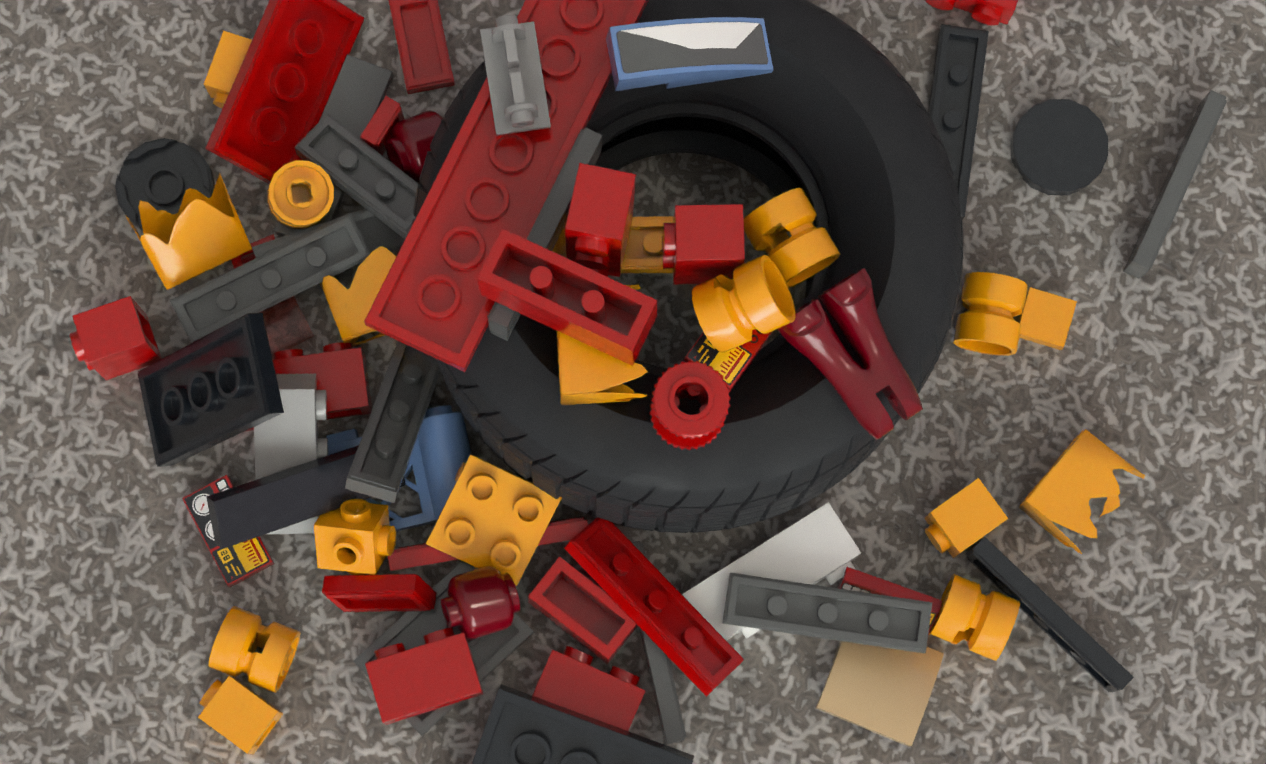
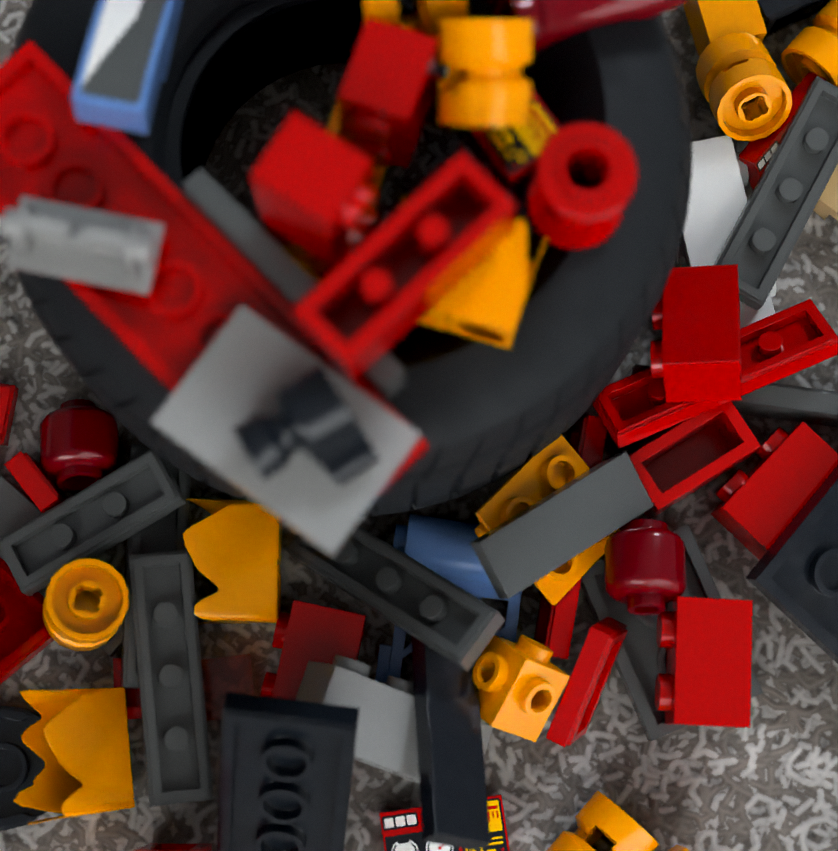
camera: 70 degrees left, 0 degrees up
(430, 265) = (241, 379): none -> light grey tile
(442, 273) = (310, 419): none -> black piece
(486, 524) = (562, 525): none -> dark grey tile
(675, 576) = (699, 335): none -> red piece
(904, 548) = (743, 87): none -> light orange wheel

